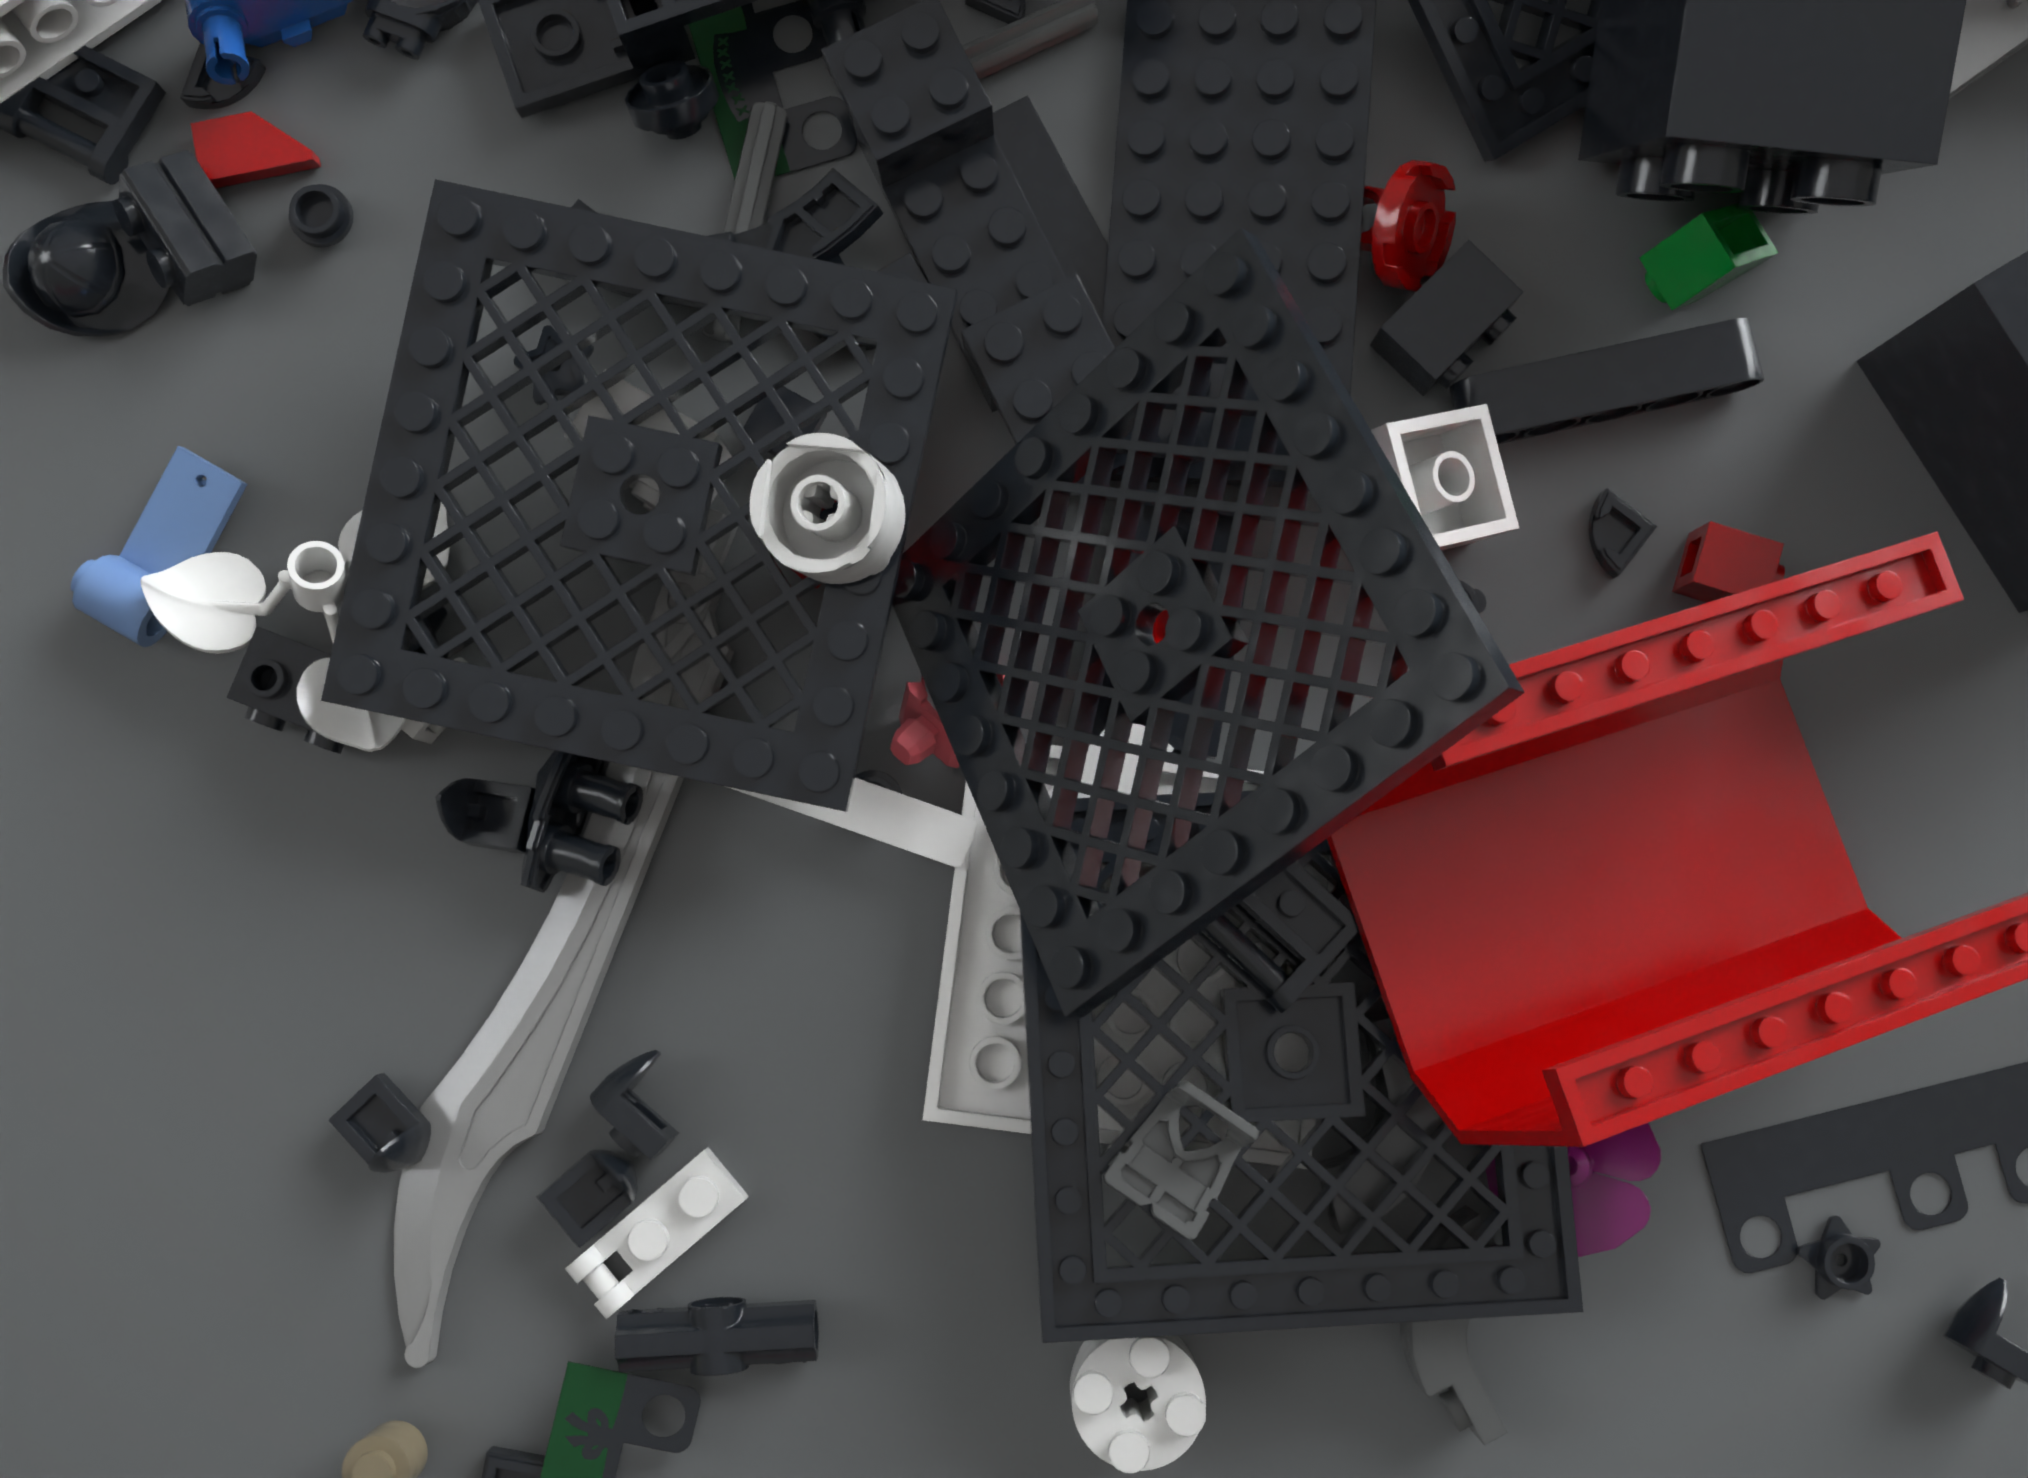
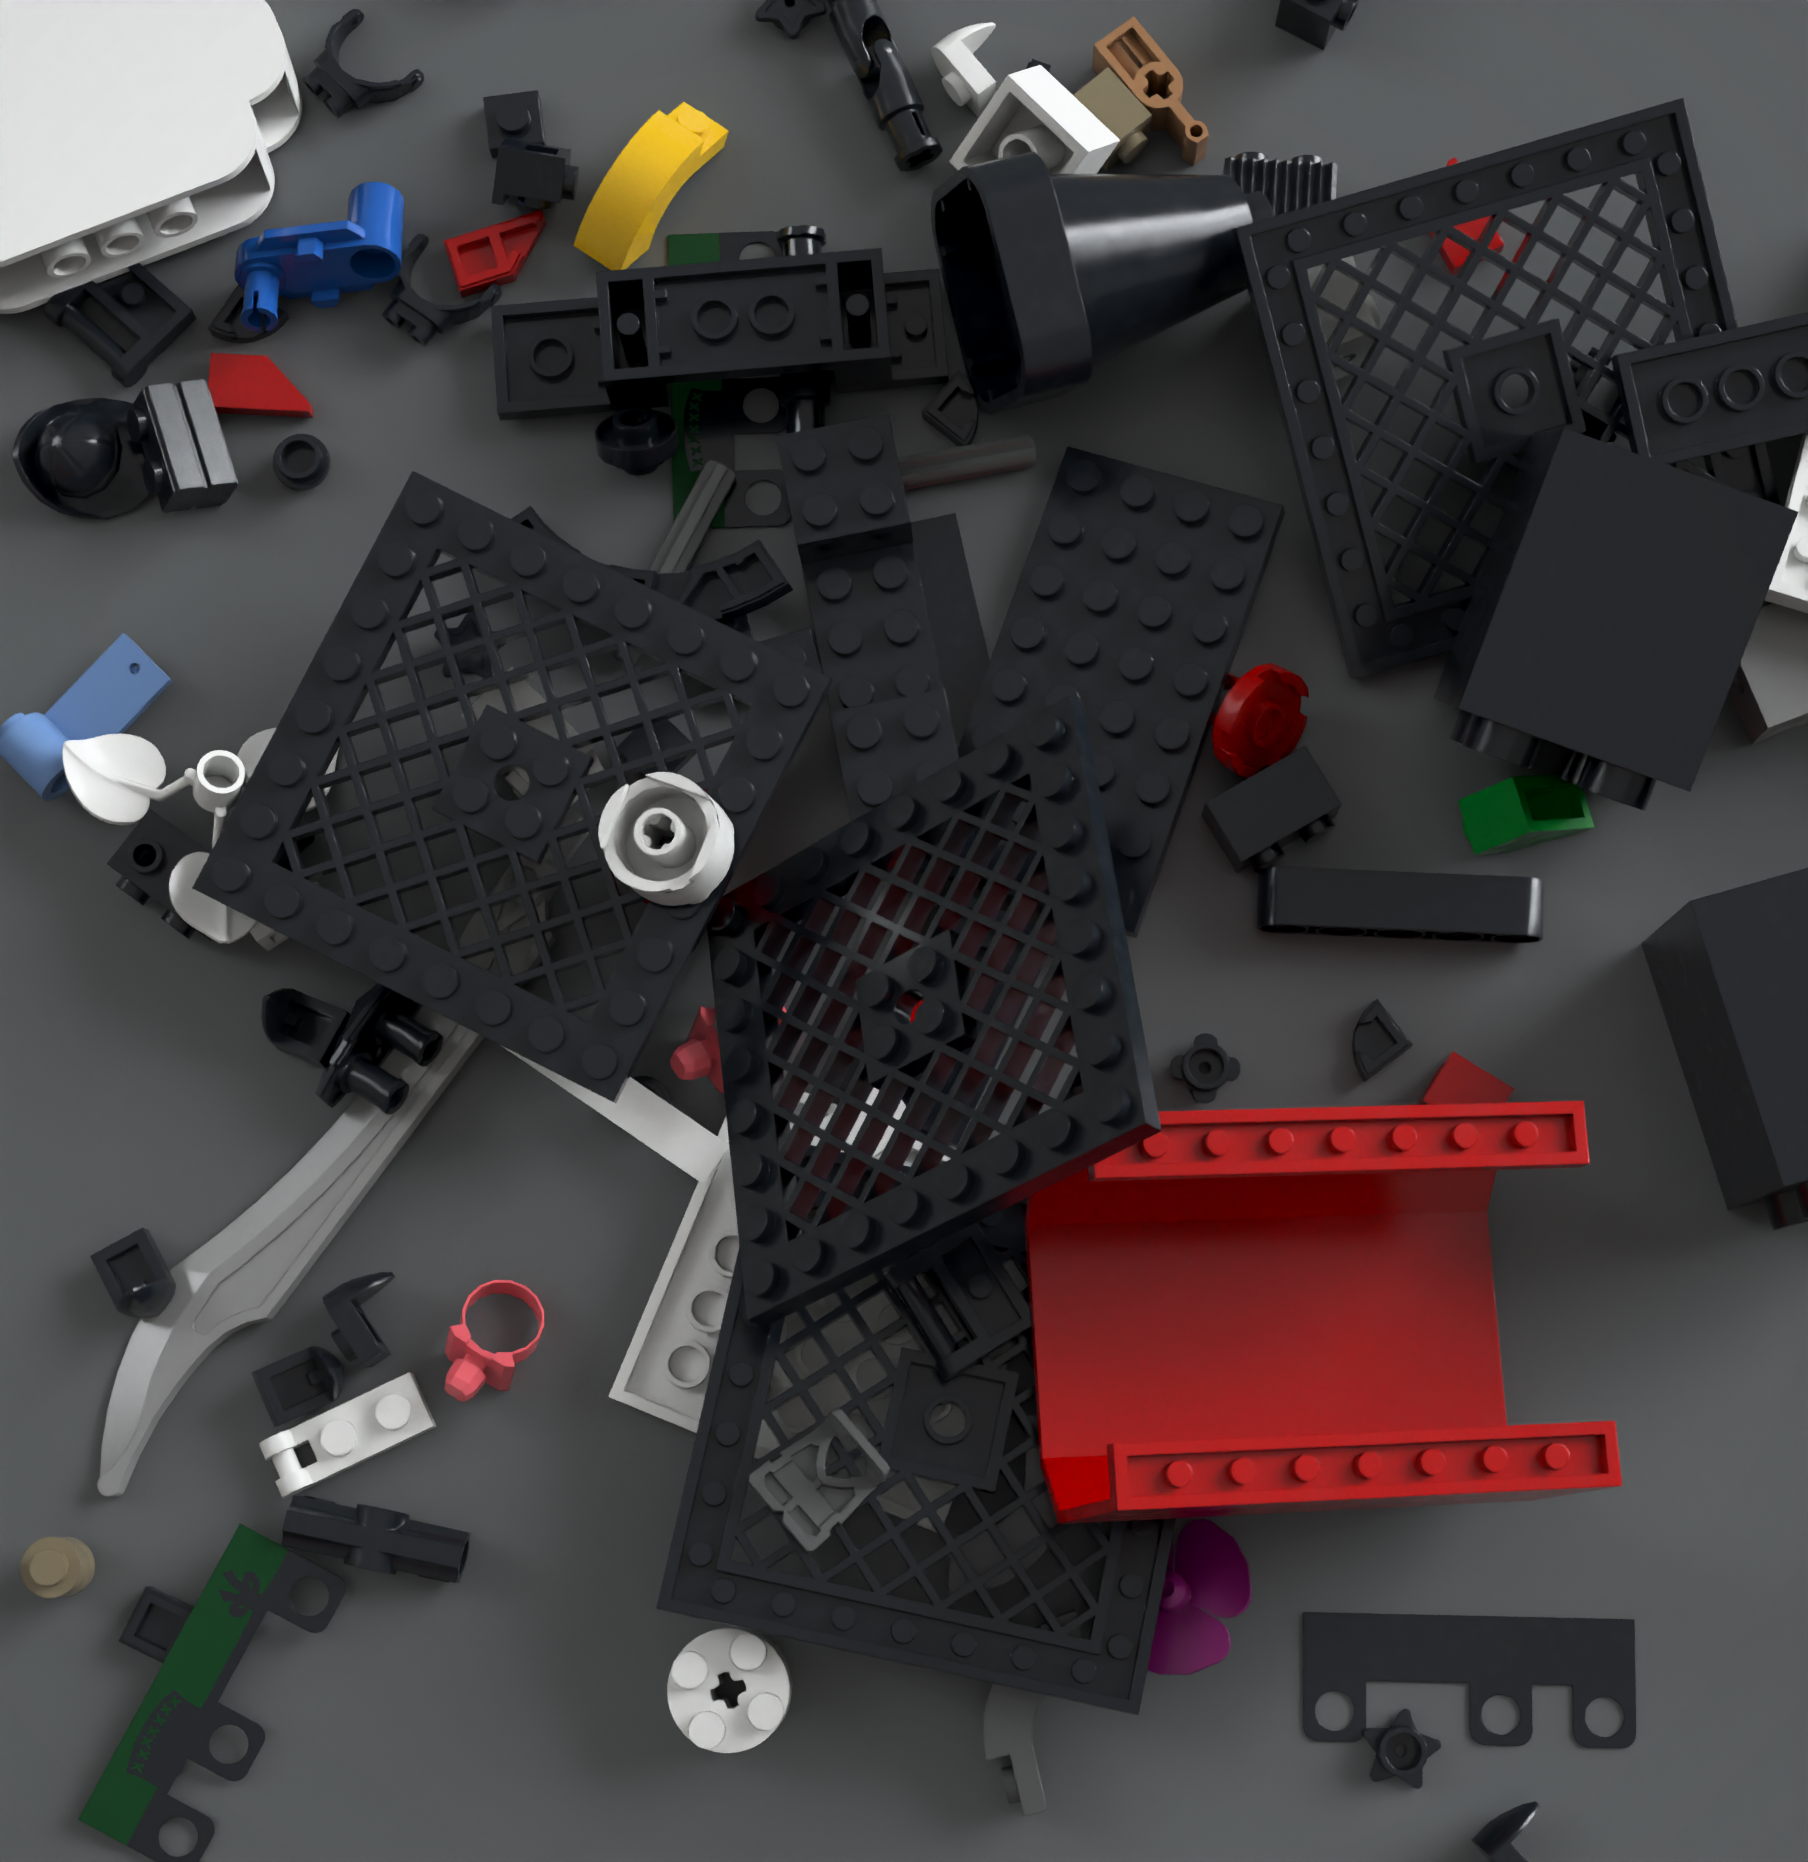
camera: 20 degrees right, 5 degrees down
(772, 1125) = (475, 1366): none -> coral piece
(1452, 474) = (1209, 953): white brick -> none

